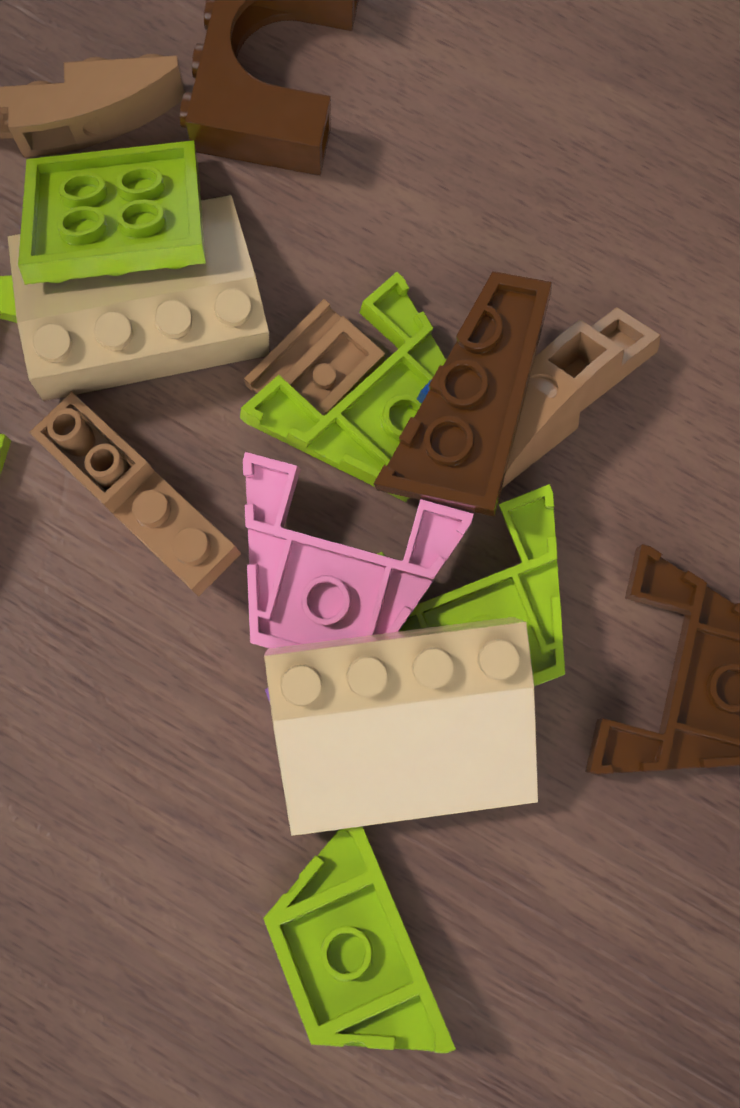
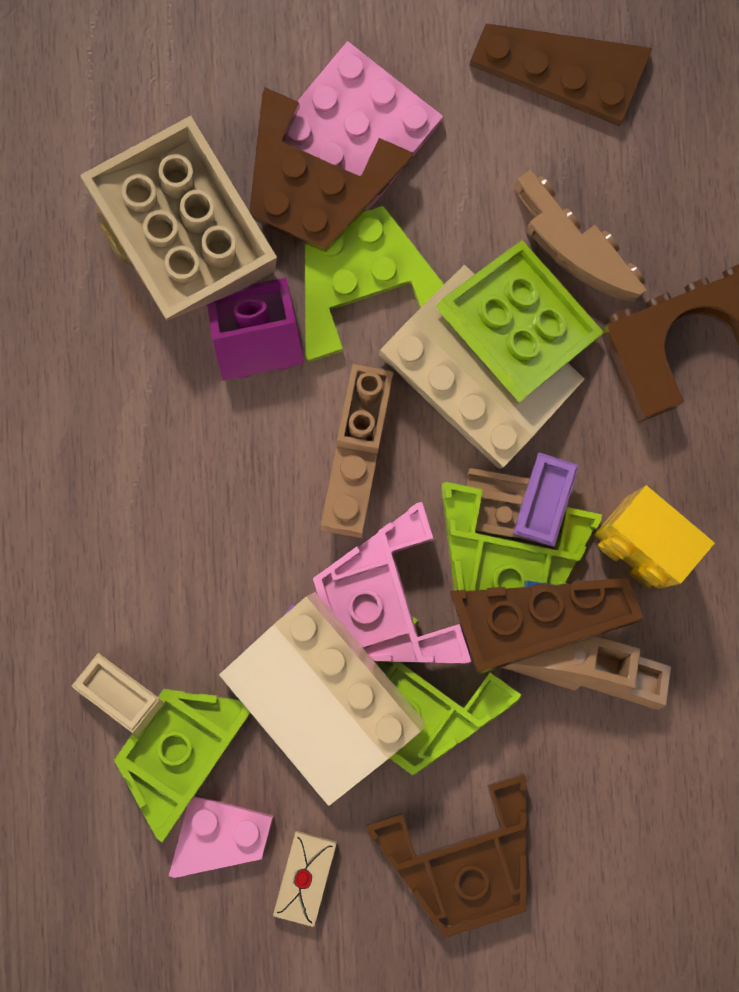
camera: 60 degrees right, 5 degrees up
(232, 983) = (118, 694): none -> tan tile
(338, 315) = (545, 499): none -> medium lavender tile
(466, 210) = (652, 540): none -> yellow brick
(490, 966) = (218, 837): none -> bright pink wing
(606, 890) = (304, 878): none -> tan tile

